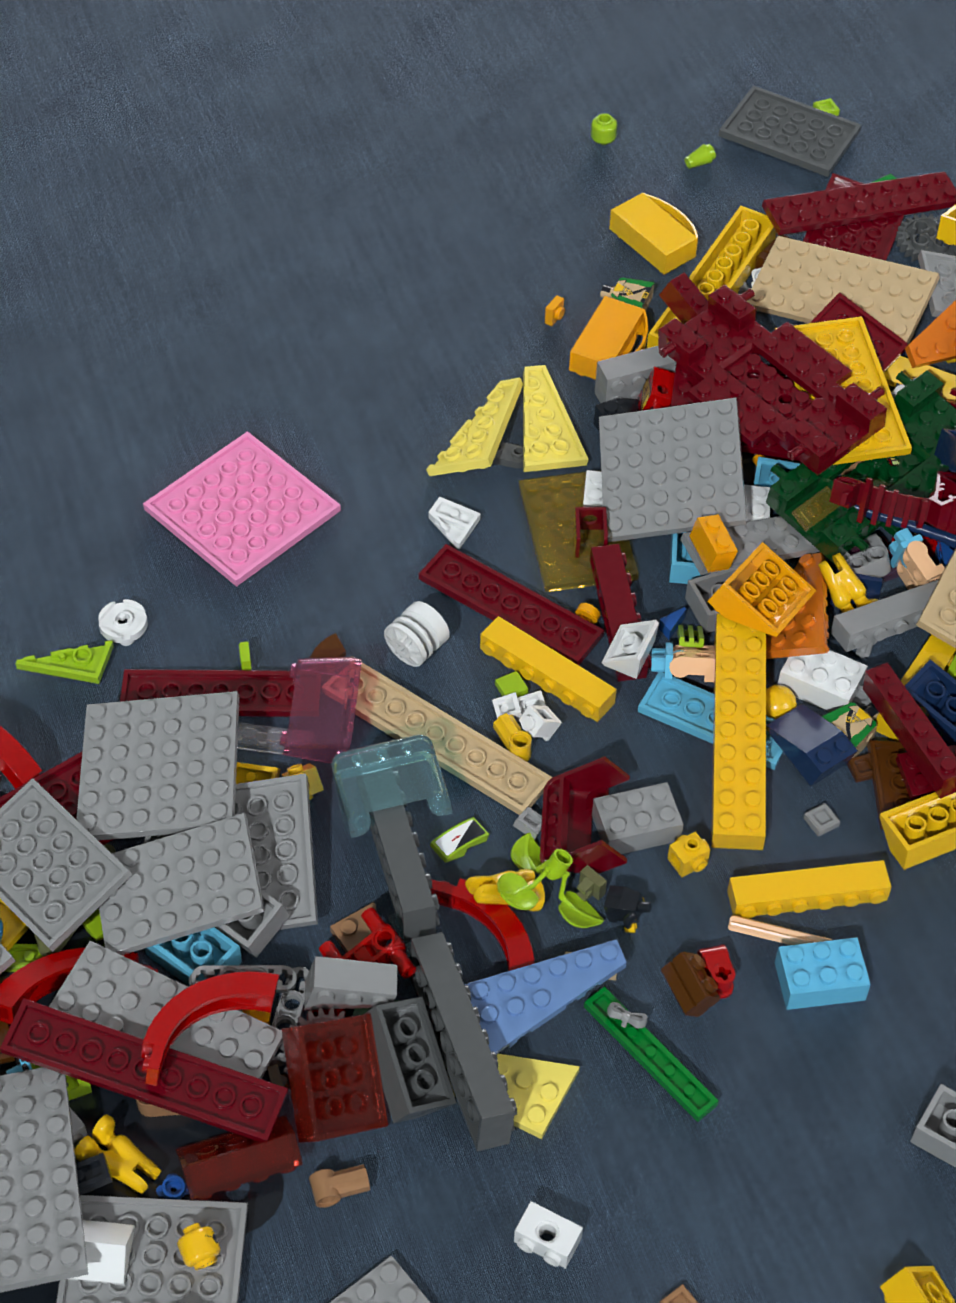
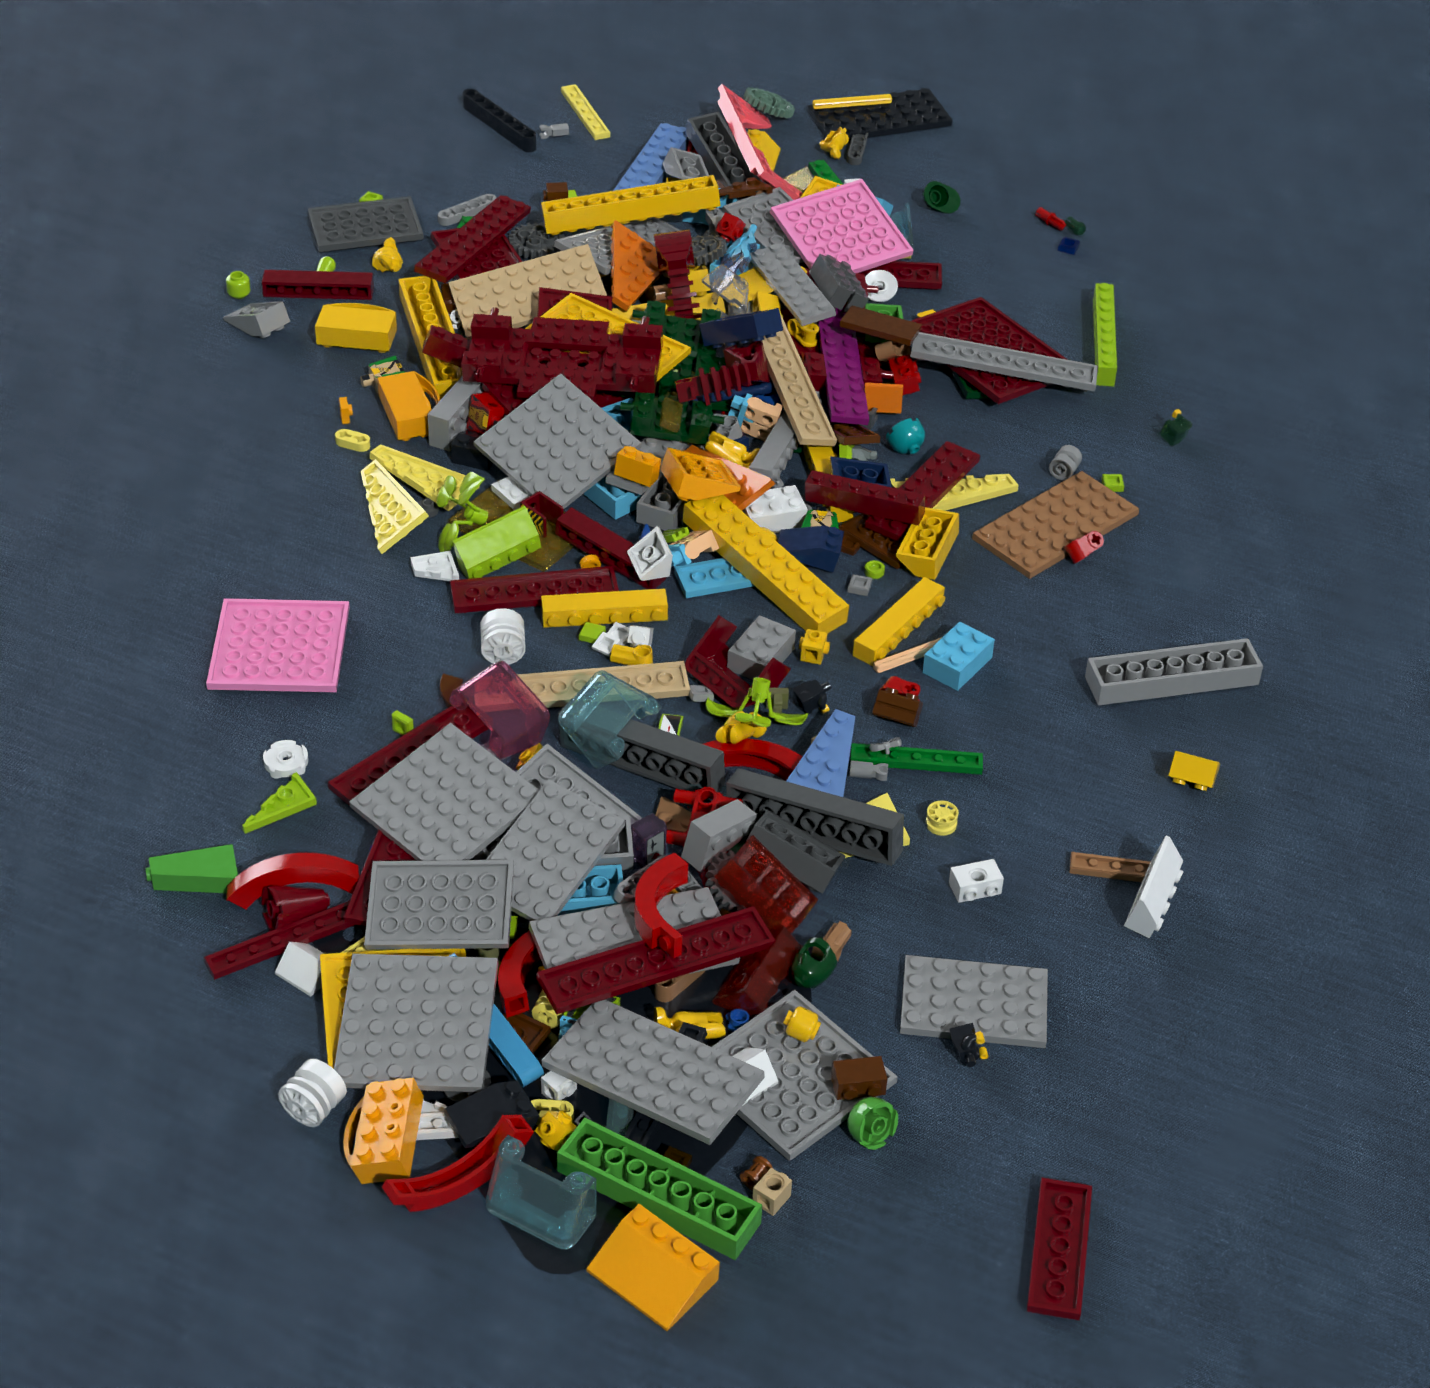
camera: 45 degrees left, 10 degrees down
(285, 1192) = (810, 972): none -> dark green piece
(298, 940) = (648, 839): none -> clear purple brick
(515, 536) = (496, 544): none -> lime slope
(530, 490) = (472, 513): none -> lime plant
(535, 343) = (352, 440): none -> light yellow beam
(587, 174) = (259, 318): none -> light grey slope
(590, 1027) = (868, 770): none -> light grey bar
(597, 1138) = (942, 819): none -> light yellow wheel
(676, 169) = (318, 284): none -> dark red brick
(770, 177) = (387, 257): none -> yellow hair
(856, 813) = (874, 569): none -> lime tile
(880, 167) = (469, 208): none -> light grey beam

